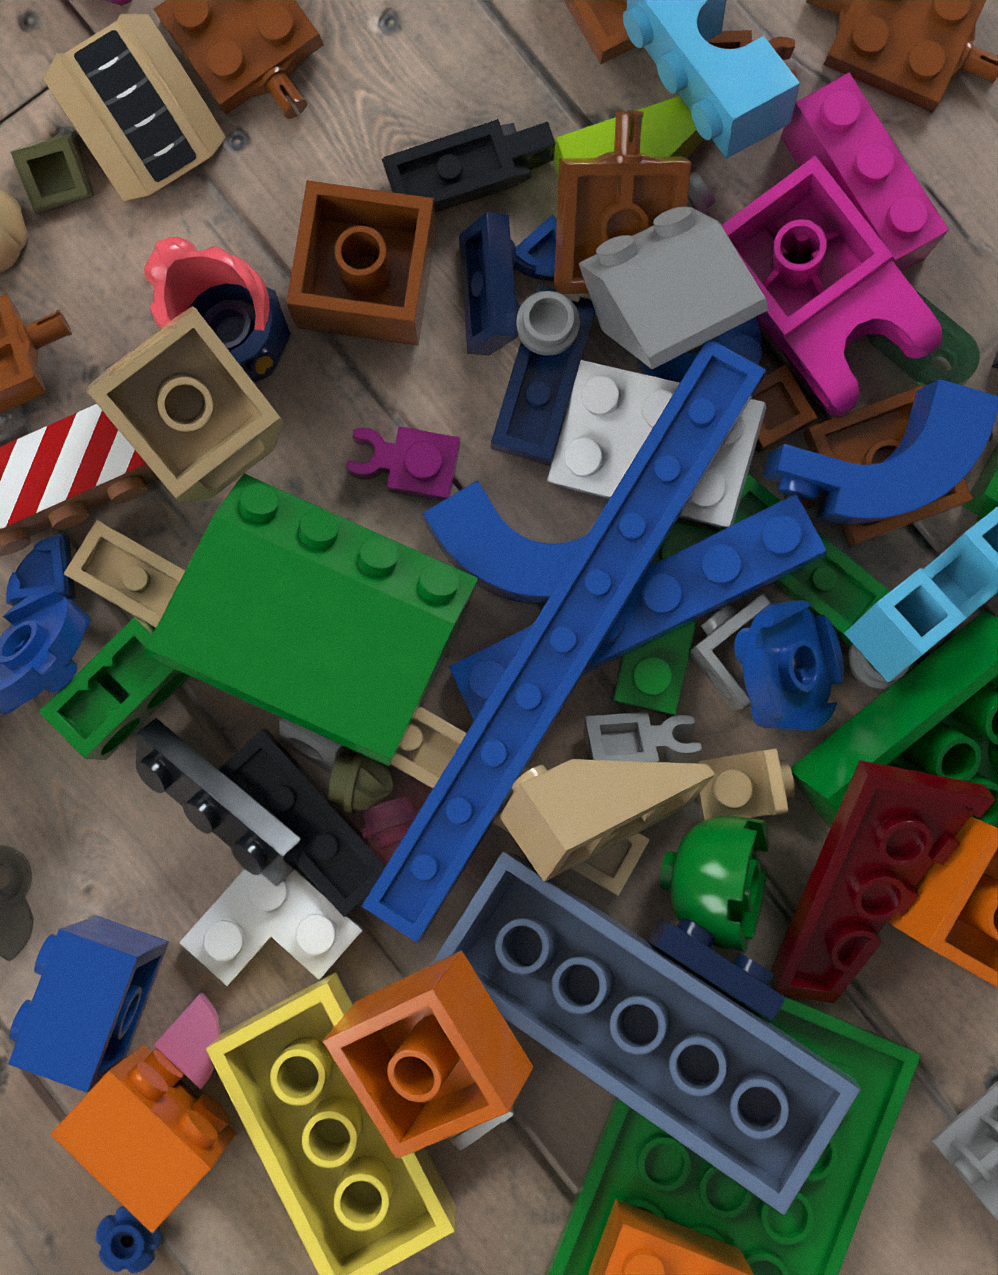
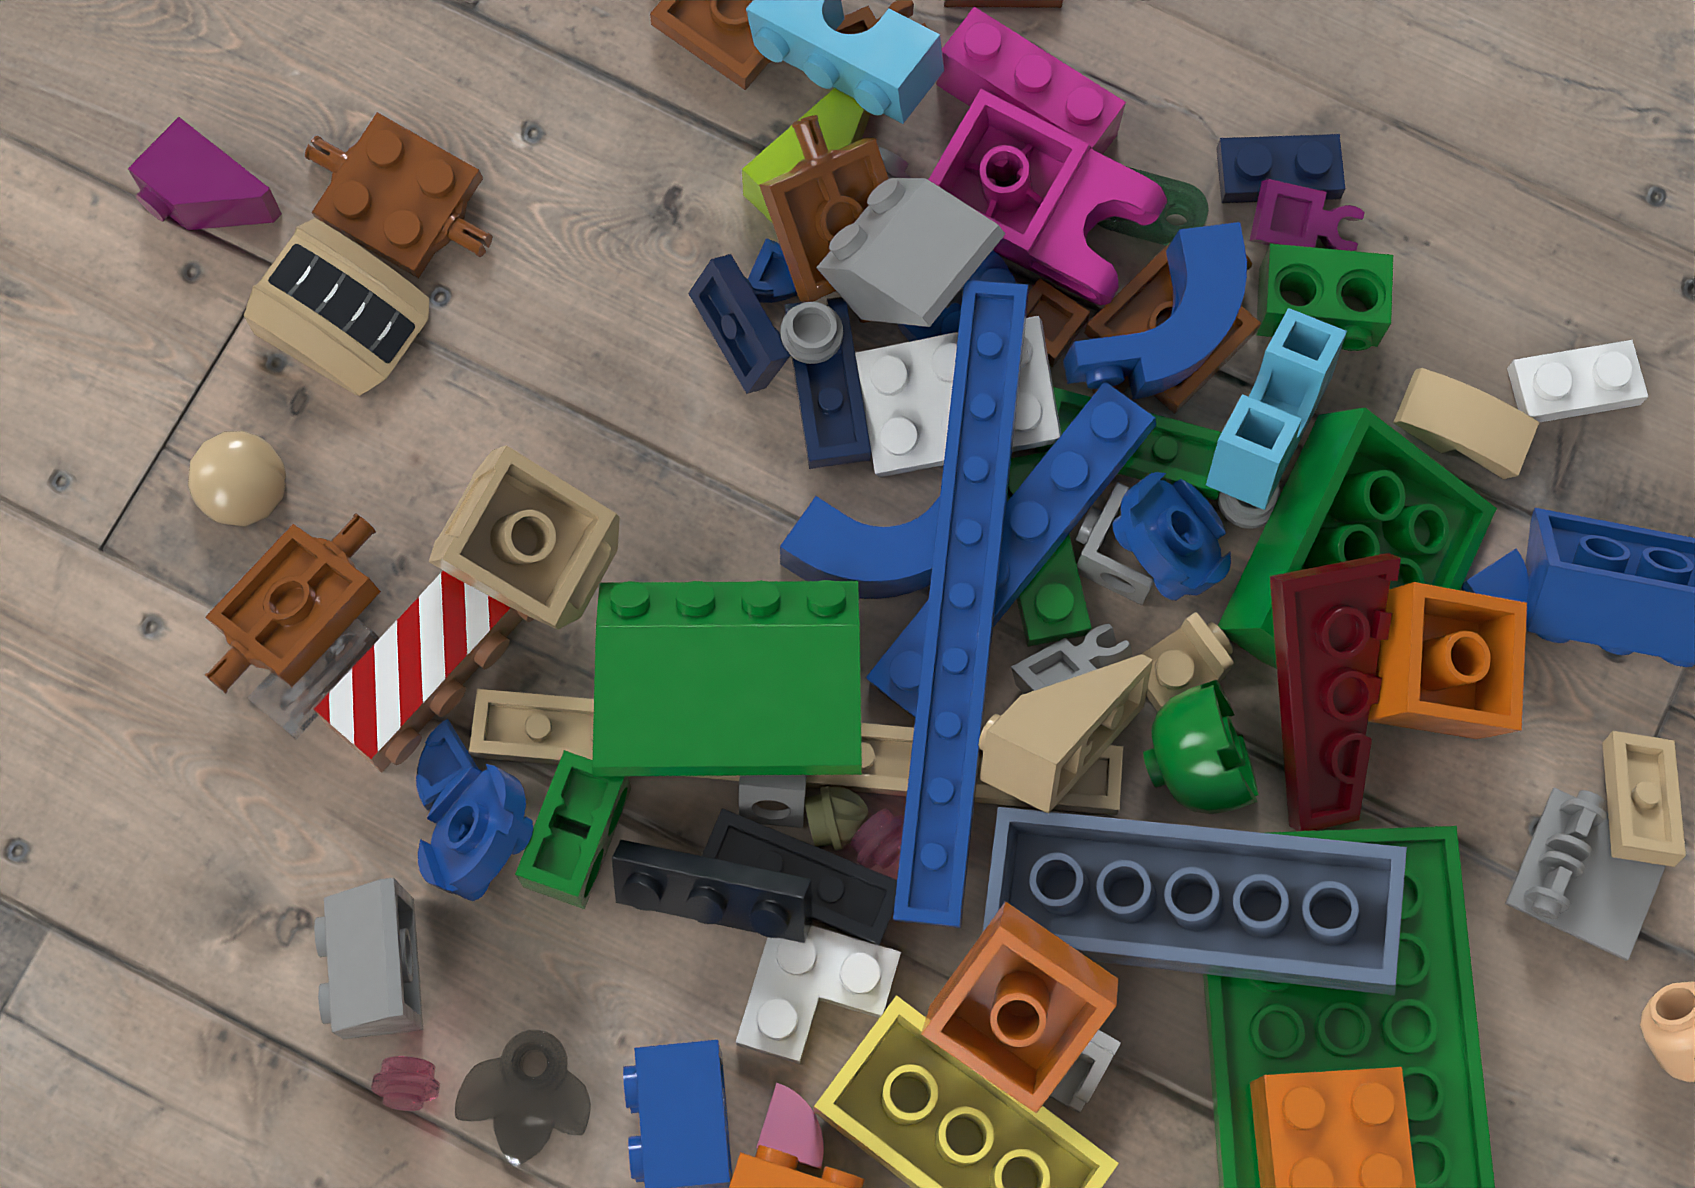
camera: 25 degrees left, 10 degrees down
(53, 171) = (281, 396): olive slope -> none
(226, 295) = (470, 431): piece -> none
(362, 262) = (619, 352): dark orange brick -> none
(417, 464) = (747, 509): magenta plate -> none
(470, 163) = (666, 230): black hinge -> none
(741, 979) = (1263, 816): dark blue plate -> none

